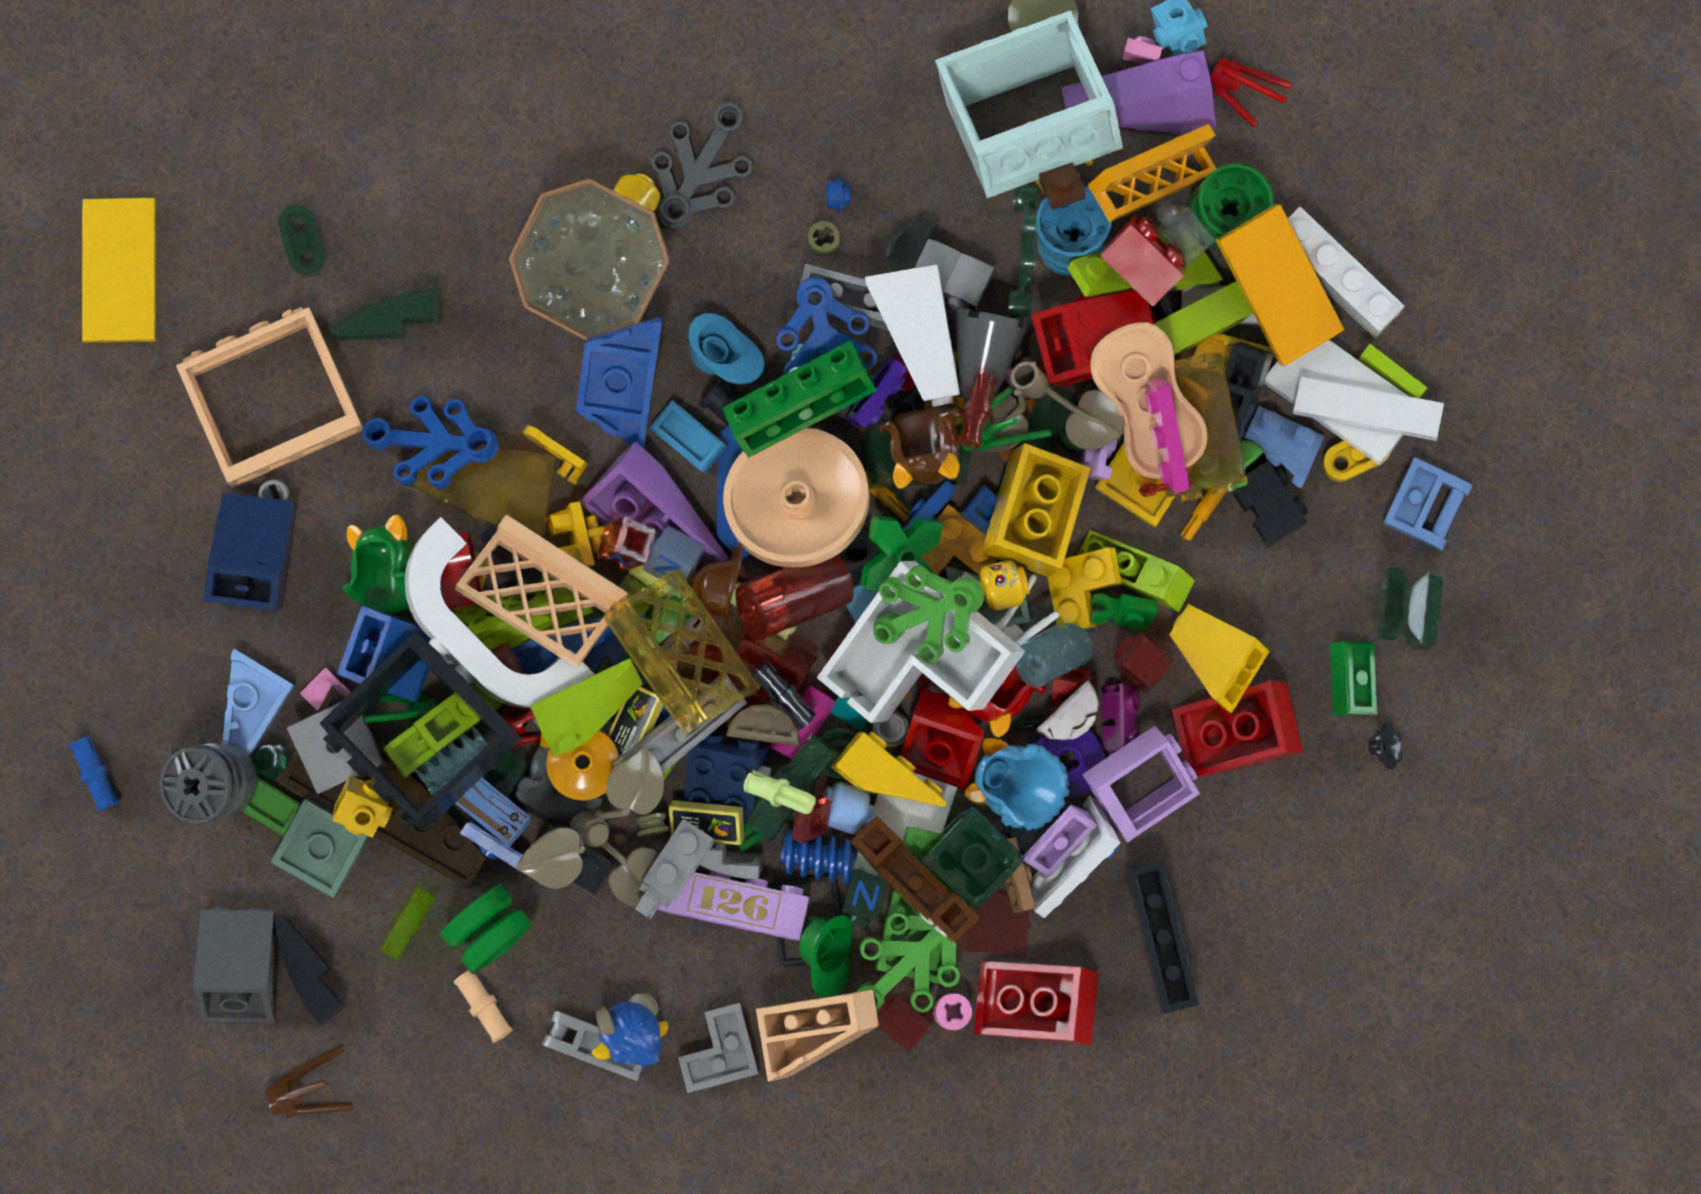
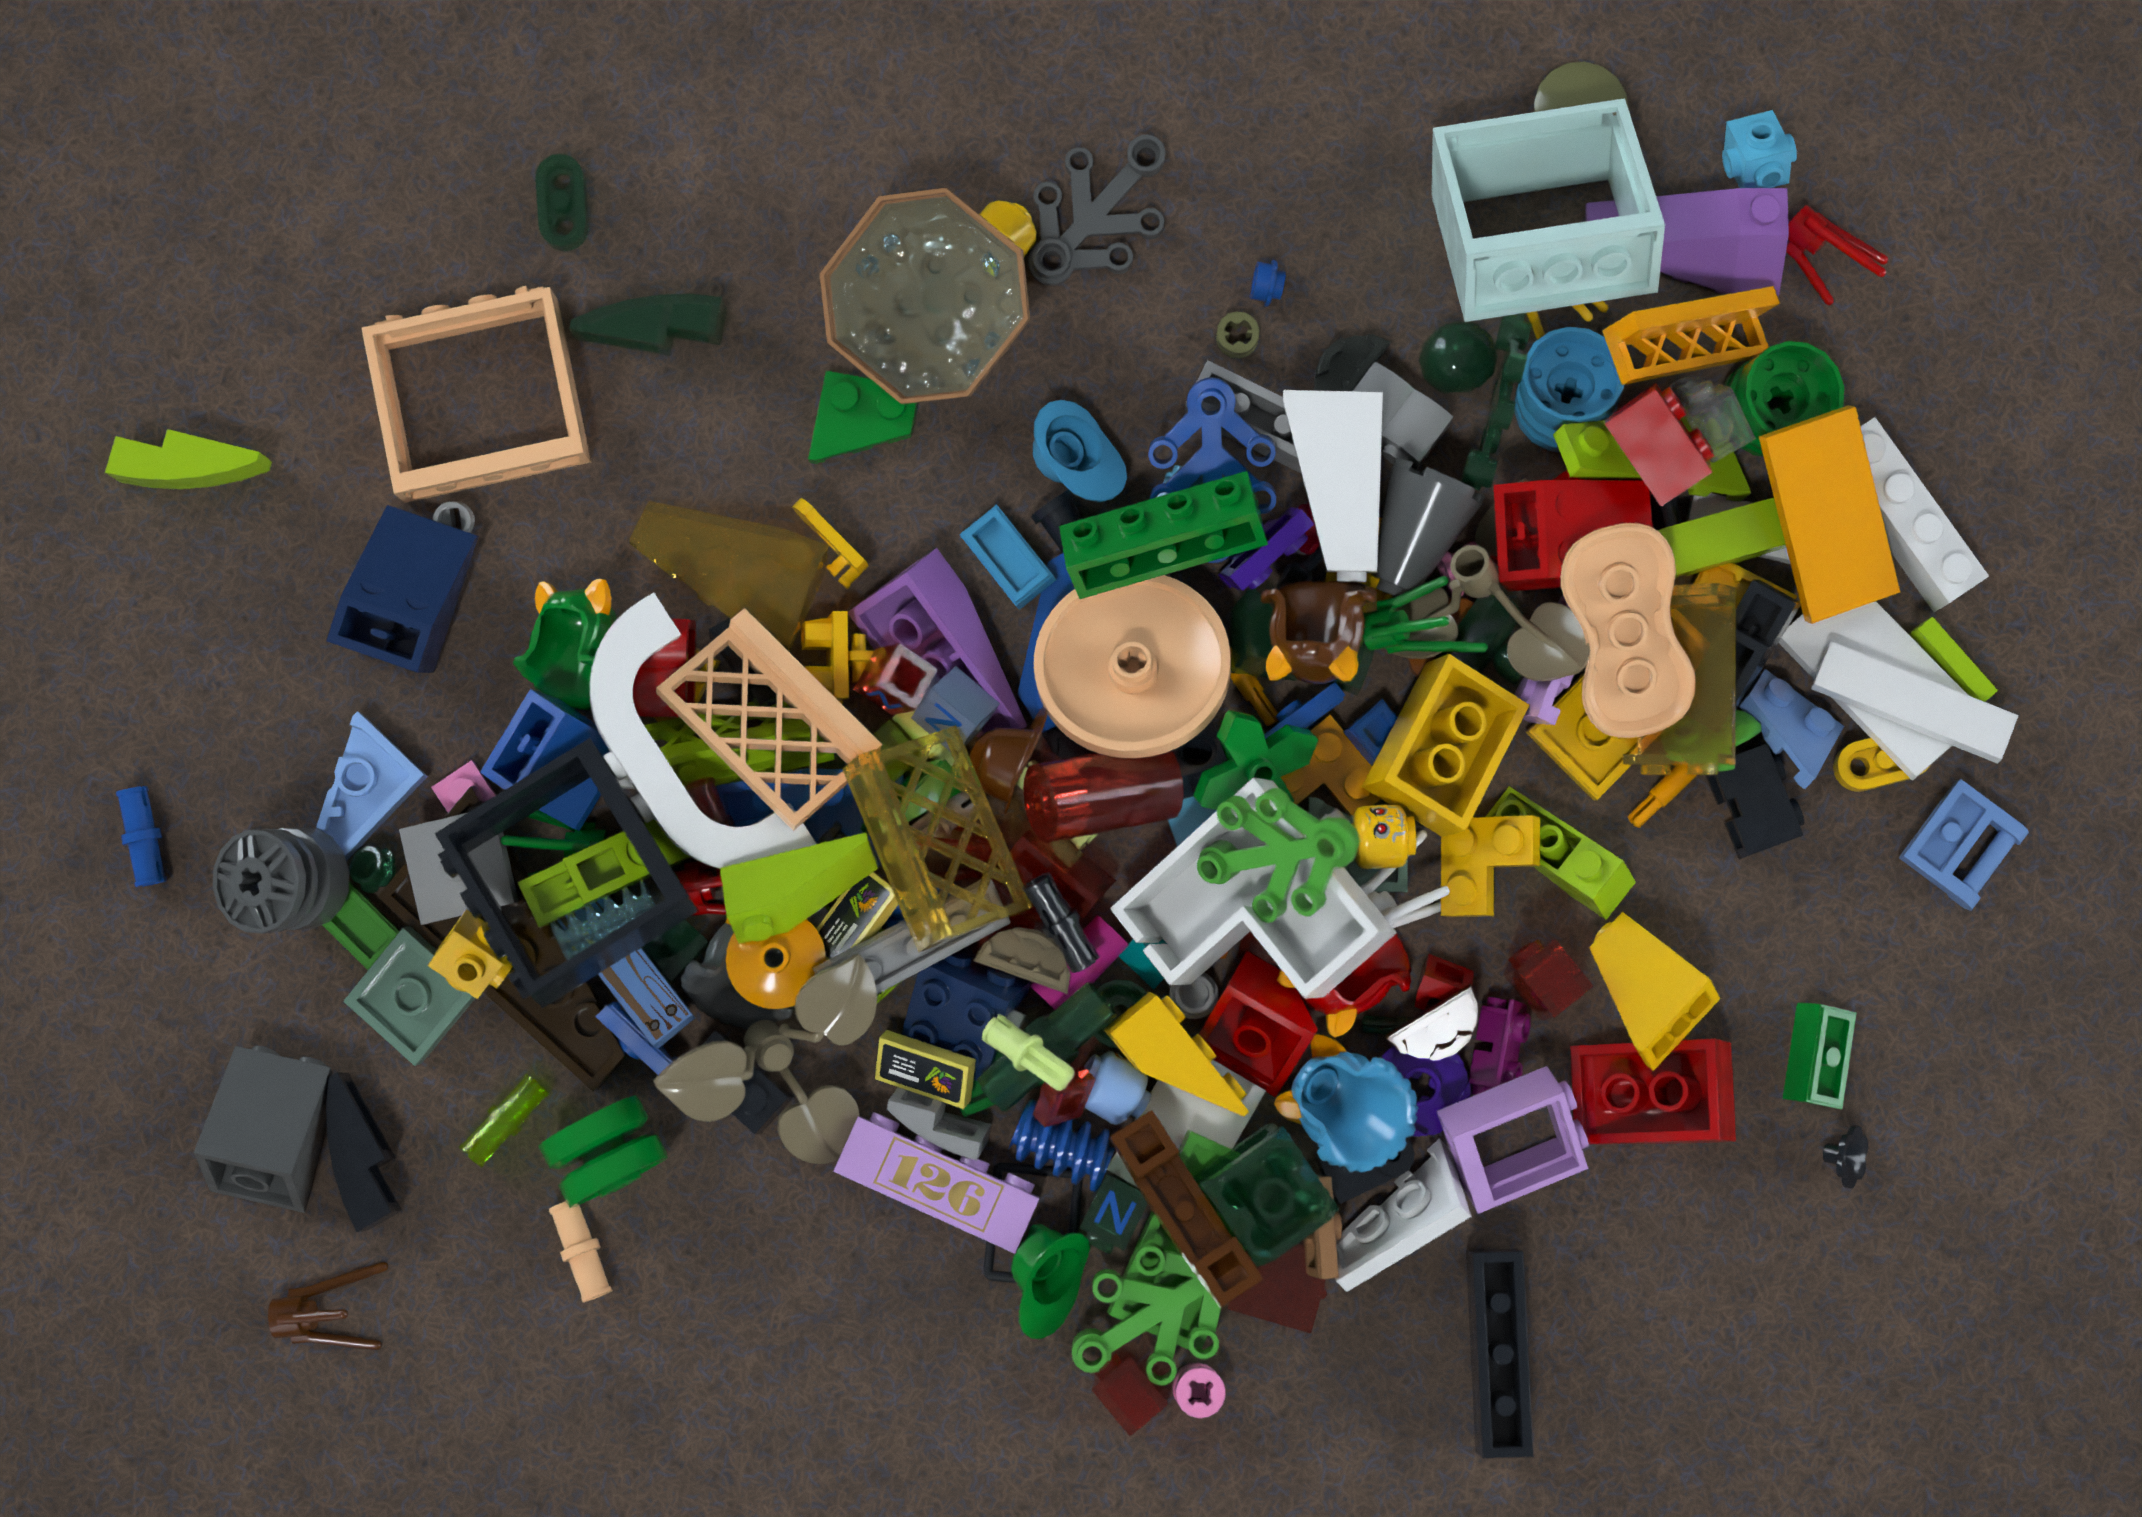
camera: 15 degrees right, 0 degrees up
(63, 492) = (183, 462): none -> lime slope
(119, 270) = (320, 194): yellow tile -> none
(435, 443) = (674, 497): blue plant -> none
(550, 356) = (856, 416): none -> green wing
(585, 1041) = (719, 1336): light grey plate -> none
(620, 379) = (933, 462): blue wing -> none
(630, 1031) = (765, 1329): blue hair -> none
(651, 824) = (853, 1056): olive bush -> none
(673, 868) = (867, 1122): light grey hinge -> none
(728, 1060) = (890, 1389): light grey plate -> none
(810, 1029) = (1006, 1375): light nougat wedge -> none
(977, 410) = (1396, 598): clear red pin -> none
(989, 222) = (1458, 357): none -> clear green hair
(1036, 1002) = (1312, 1402): red slope -> none
(1054, 654) = (1431, 943): clear light blue piece -> none
(1060, 840) = (1390, 1193): lavender slope -> none
(1062, 186) = (1568, 325): reddish brown plate -> none
(1128, 611) = (1540, 905): green plate -> none
(1141, 50) = (1702, 175): bright pink plate -> none
(1150, 489) = (1603, 749): clear red piece -> none
(1166, 435) = (1644, 682): dark pink plate -> none
(1408, 608) = (1918, 980): clear green piece -> none

